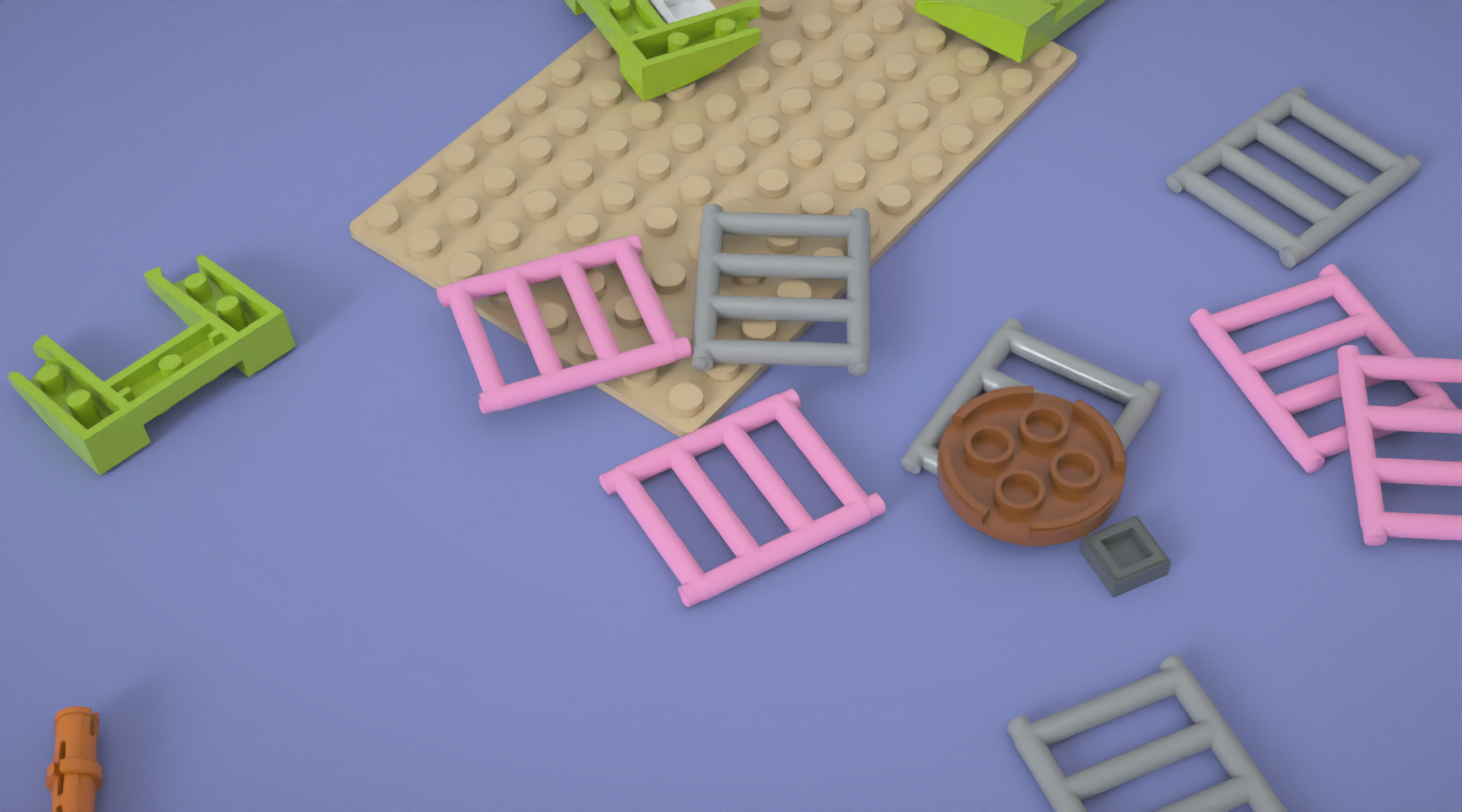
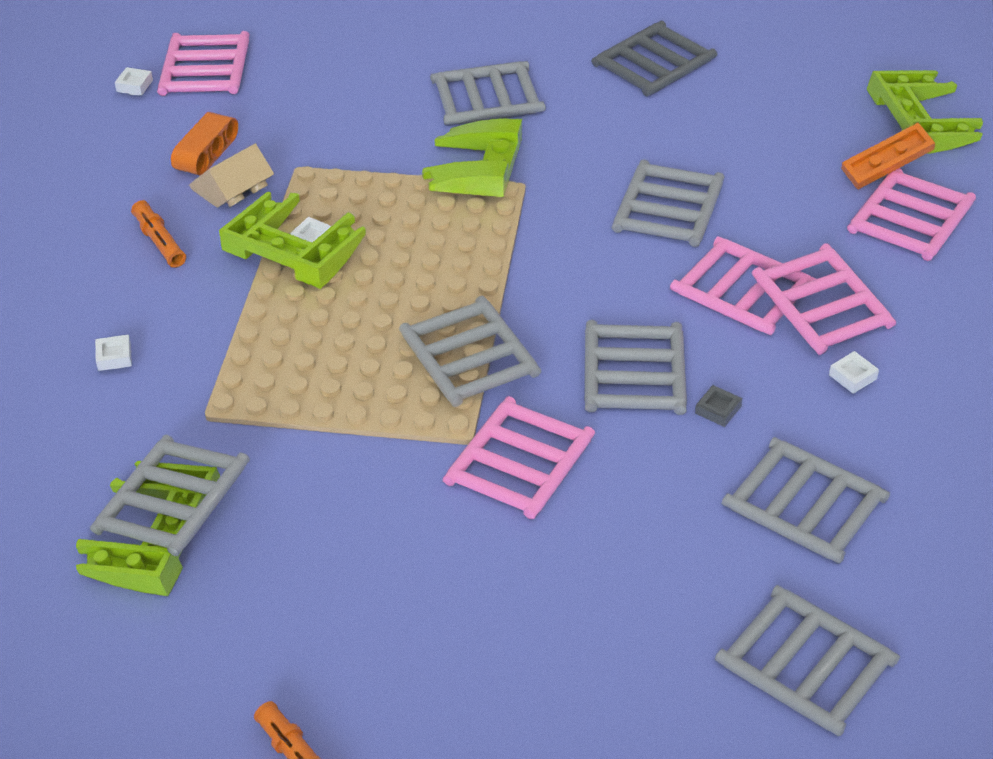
camera: 30 degrees left, 5 degrees down
(191, 371) = (194, 516): none -> light grey bar
(296, 82) = (113, 352): none -> white plate
(553, 377) = (386, 440): bright pink bar -> none
(1031, 466) = (650, 382): dark orange tile -> none
(1403, 604) = (853, 372): none -> white plate

